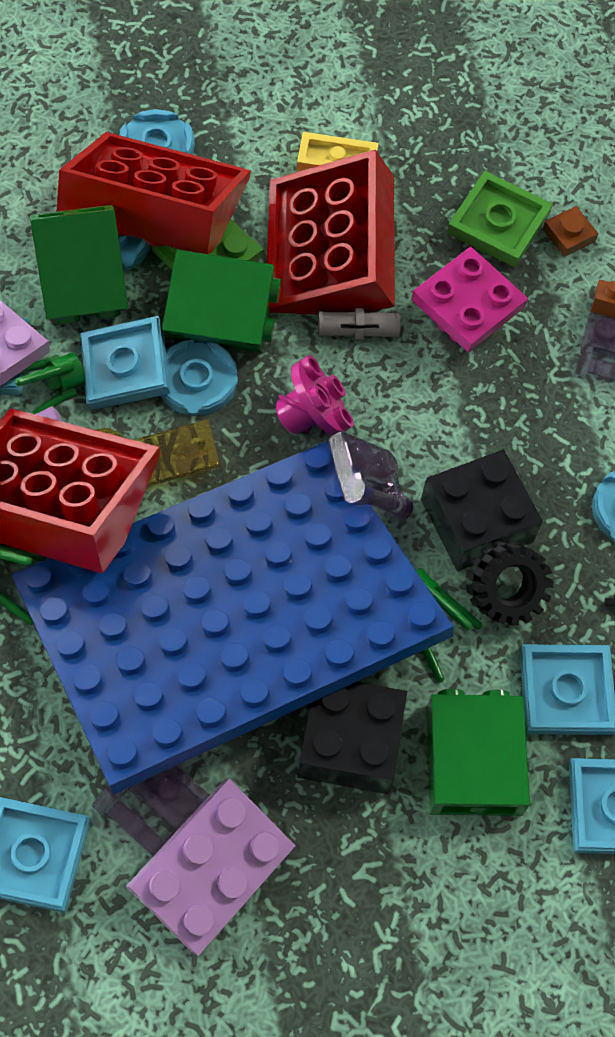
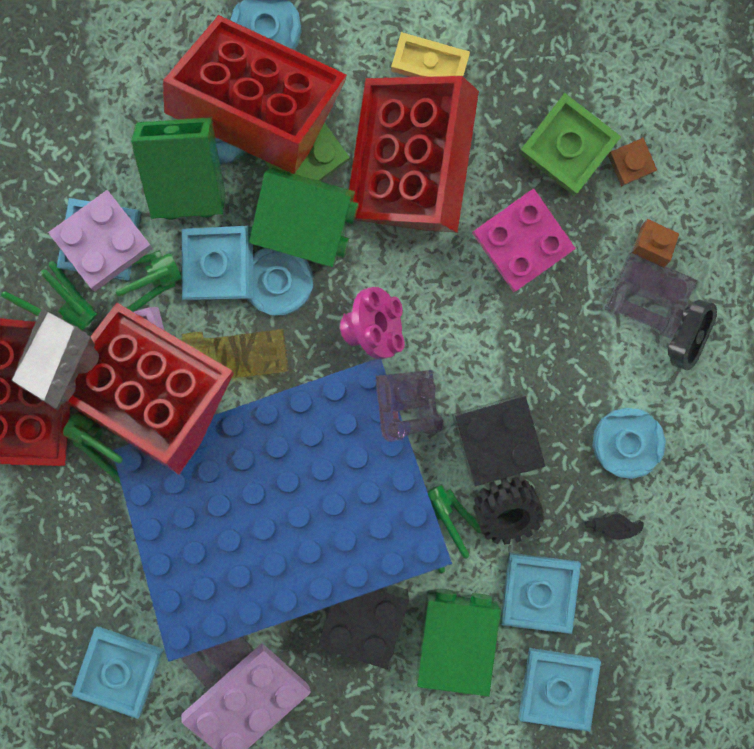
camera: 15 degrees right, 25 degrees up
(359, 324) = (424, 243): light grey pin -> none

